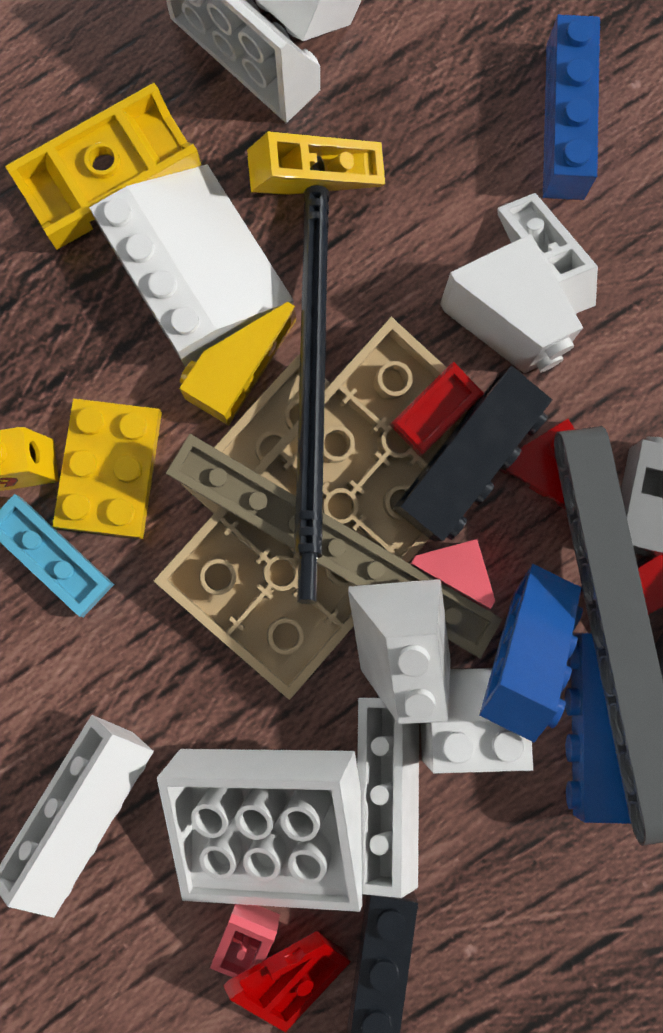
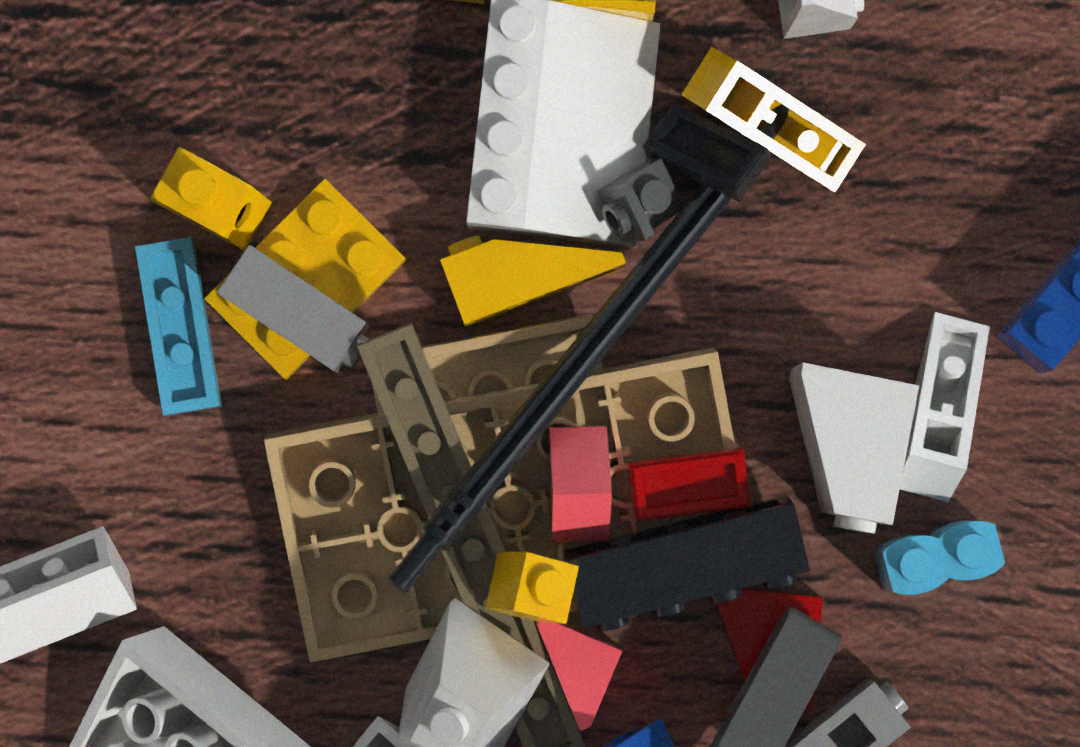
camera: 35 degrees right, 5 degrees up
(110, 485) = (295, 310): none -> light grey brick
(275, 269) = (640, 201): none -> dark grey bracket
(292, 210) = (707, 152): none -> black tile
(372, 458) = (580, 483): none -> coral slope
(392, 538) = (532, 587): none -> yellow brick
(617, 340) = (954, 551): none -> medium azure brick

